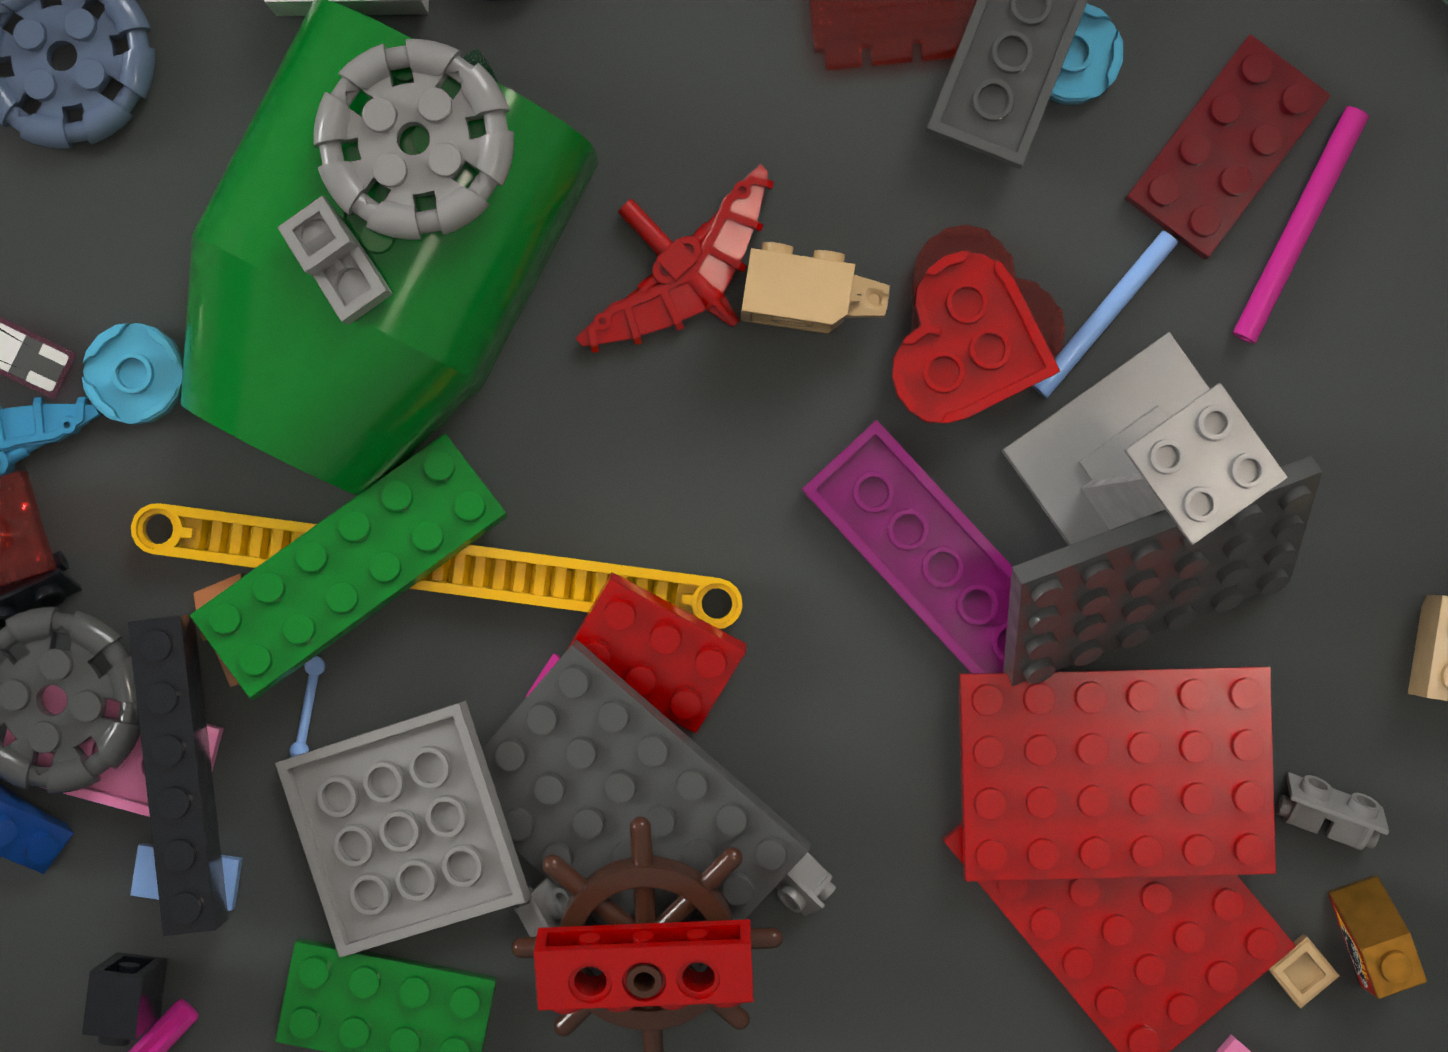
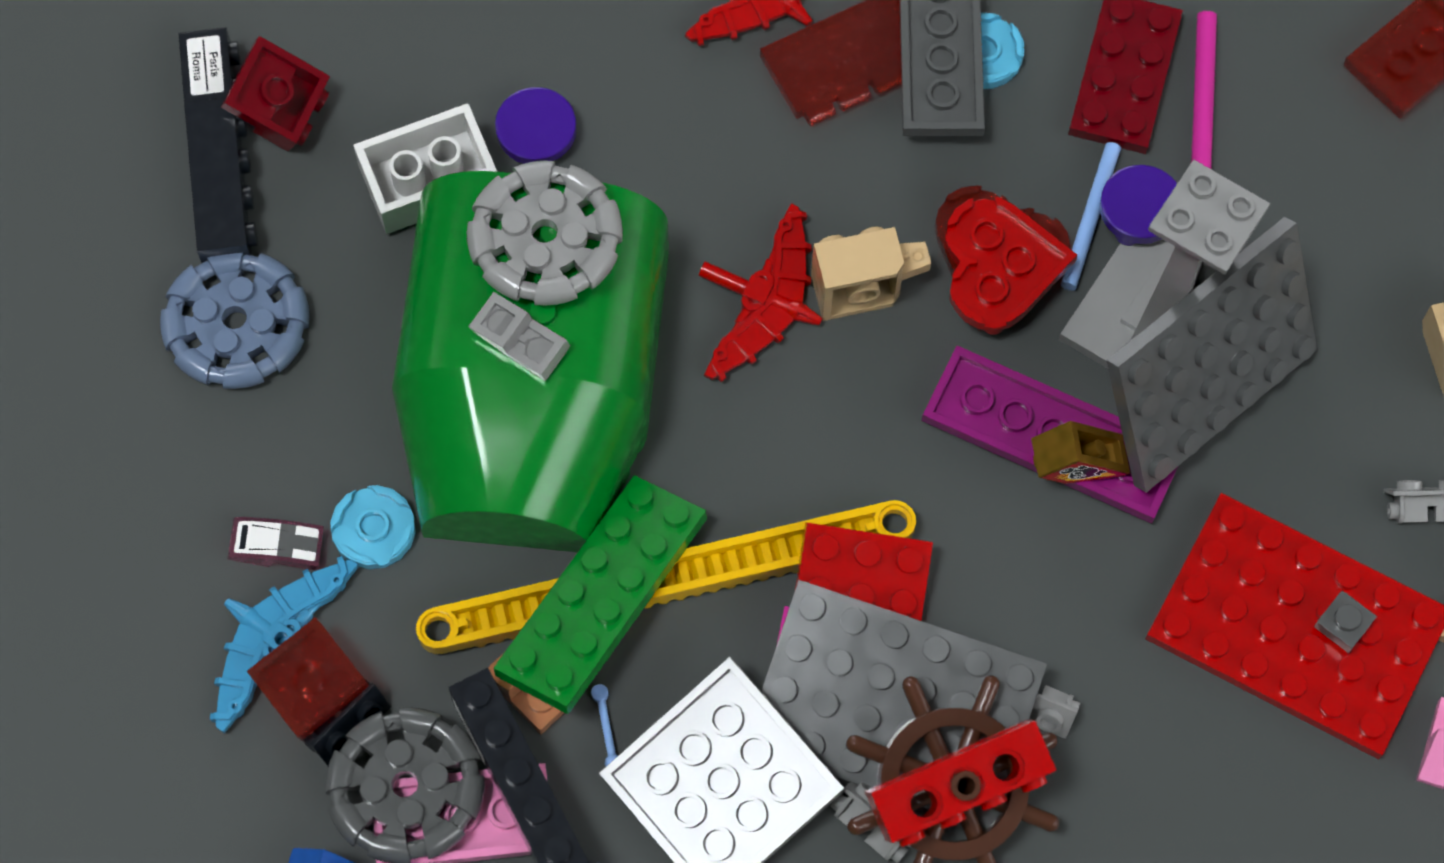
camera: 25 degrees left, 20 degrees down
(953, 615) = (1079, 453): none -> pearl gold slope
(1117, 774) = (1254, 528): red plate -> none
(1166, 331) = (1132, 202): none -> dark purple tile
(1167, 920) = (1345, 621): none -> dark grey plate

